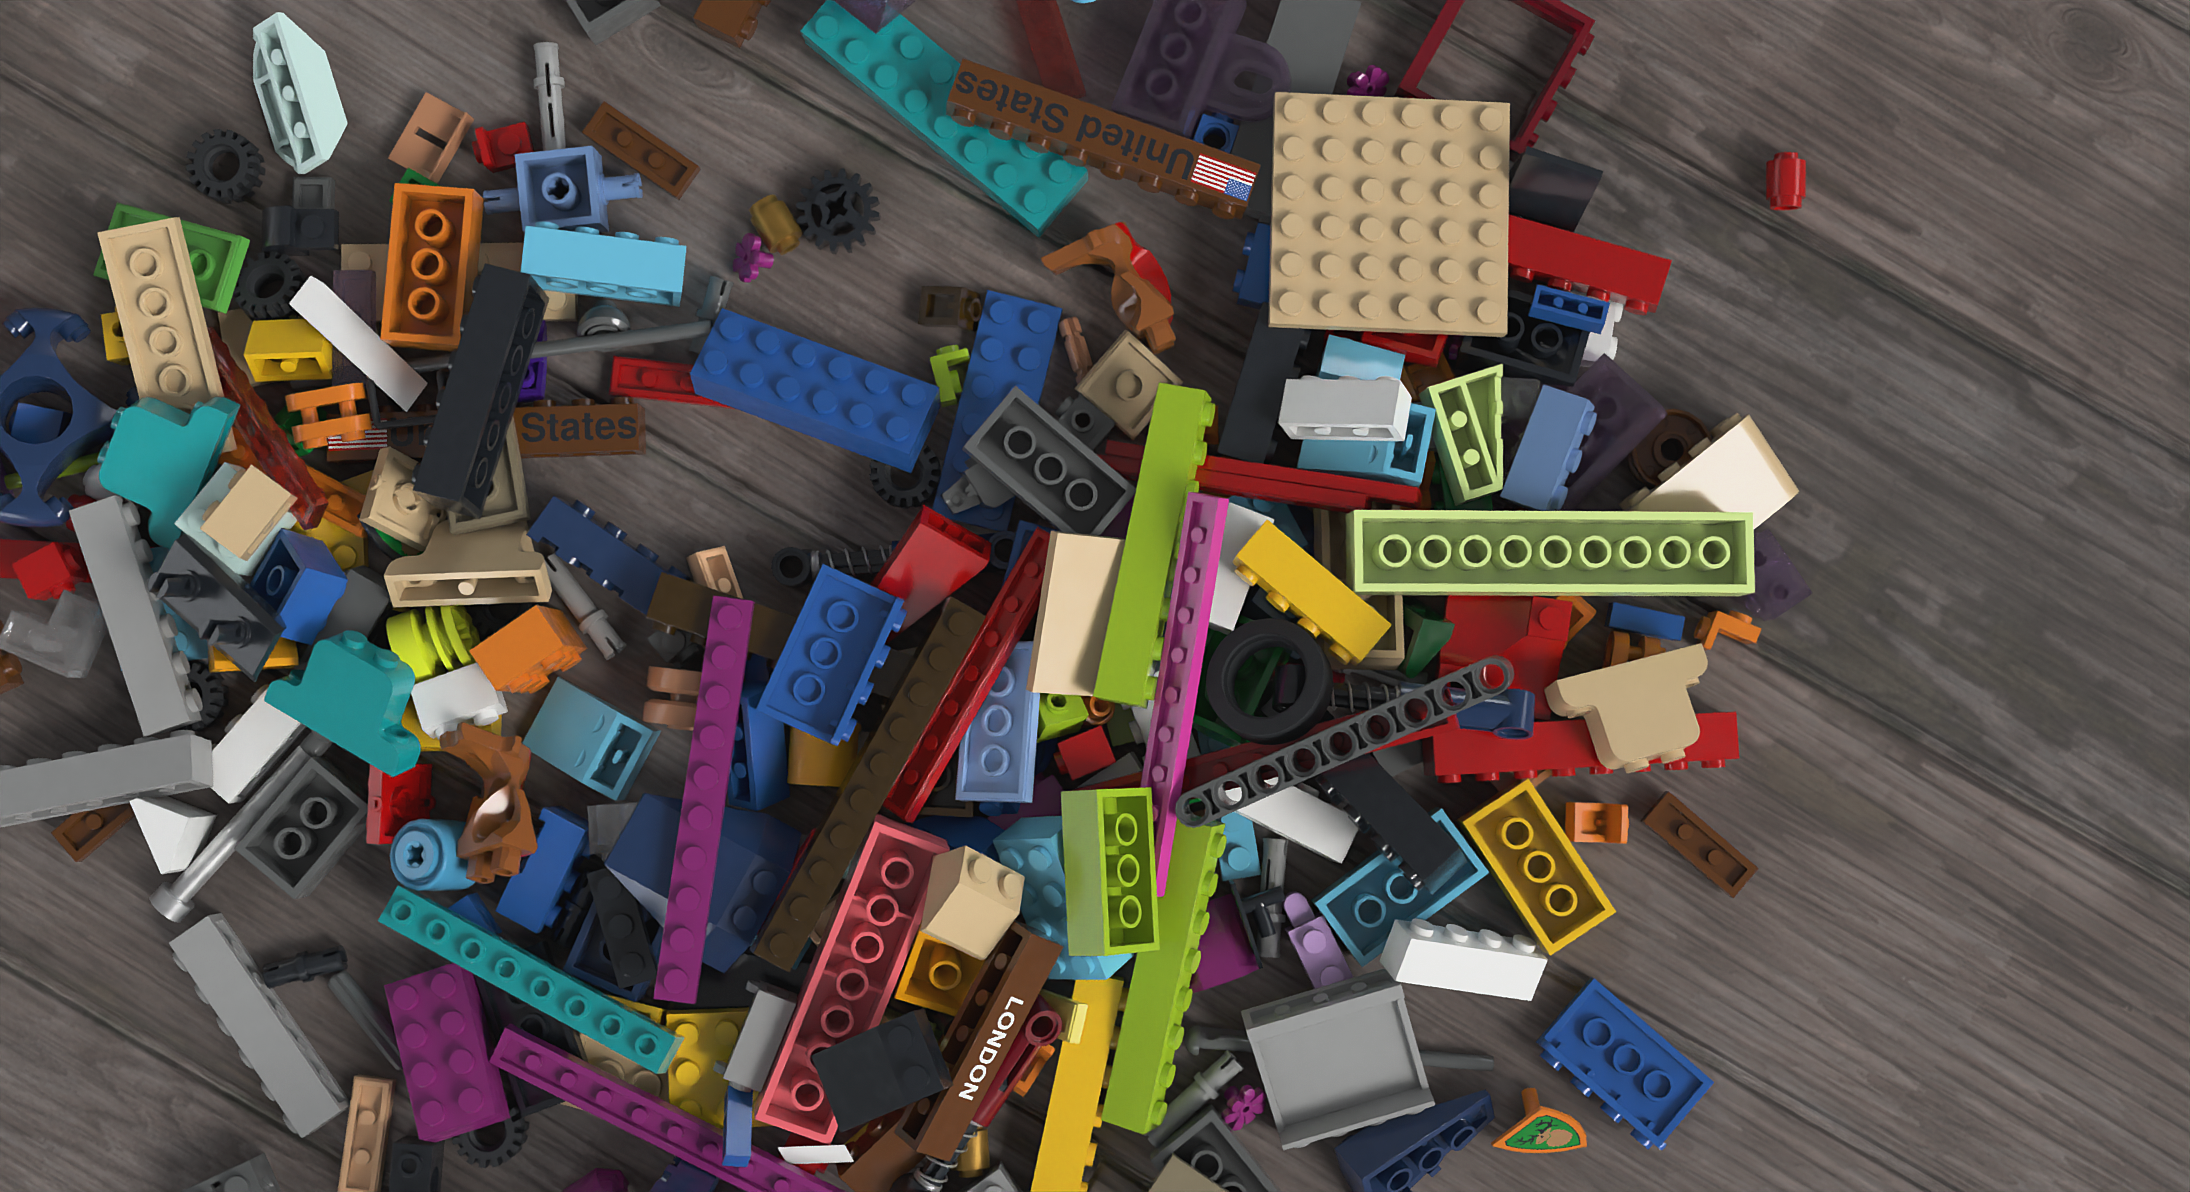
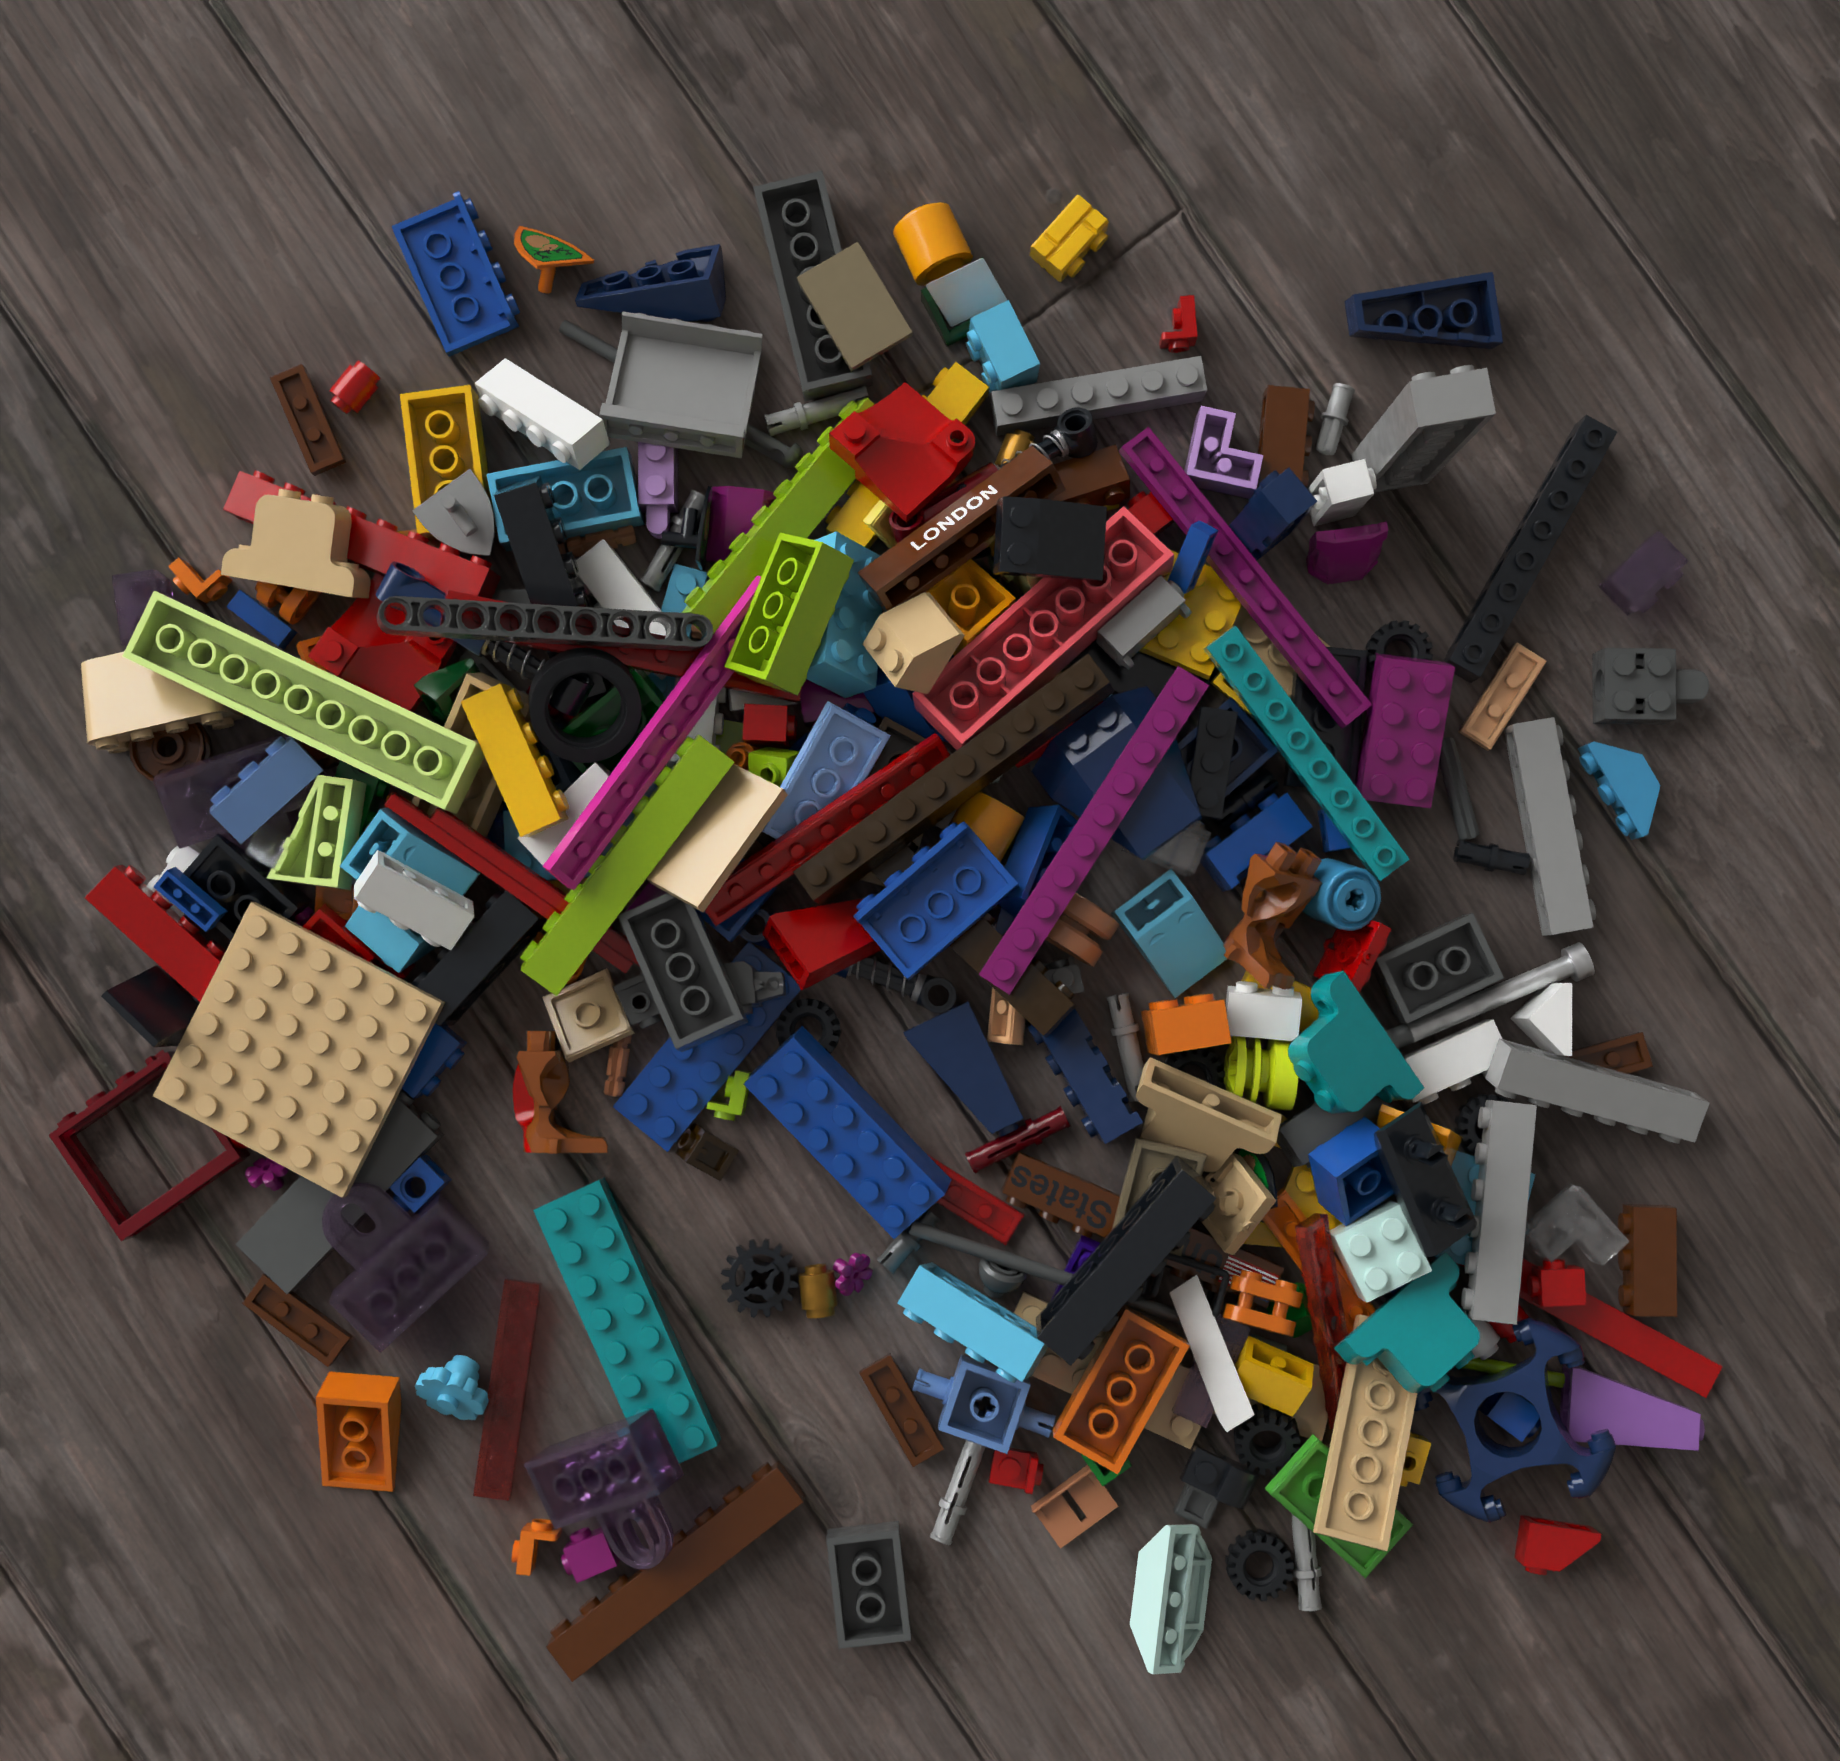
camera: 160 degrees left, 0 degrees up
(178, 185) = (1306, 1567): none -> light grey pin
(202, 1104) = (1624, 783): none -> dark azure slope
(247, 512) = (1365, 1247): tan brick -> none
(648, 464) = (1018, 1139): none -> dark red pin
(736, 515) = (965, 1062): none -> dark blue slope
(815, 1154) = (1139, 505): white sticker -> none
(1078, 1096) = (903, 449): none -> red slope
(1101, 140) = (507, 1227): reddish brown brick -> none
(1243, 1105) = (778, 386): magenta plant -> none
(1355, 856) = (623, 535): none -> nougat axle
(1493, 817) = (460, 516): none -> light grey shield
(1596, 822) = (381, 475): orange bracket -> none
(1668, 898) = (354, 388): none -> red brick

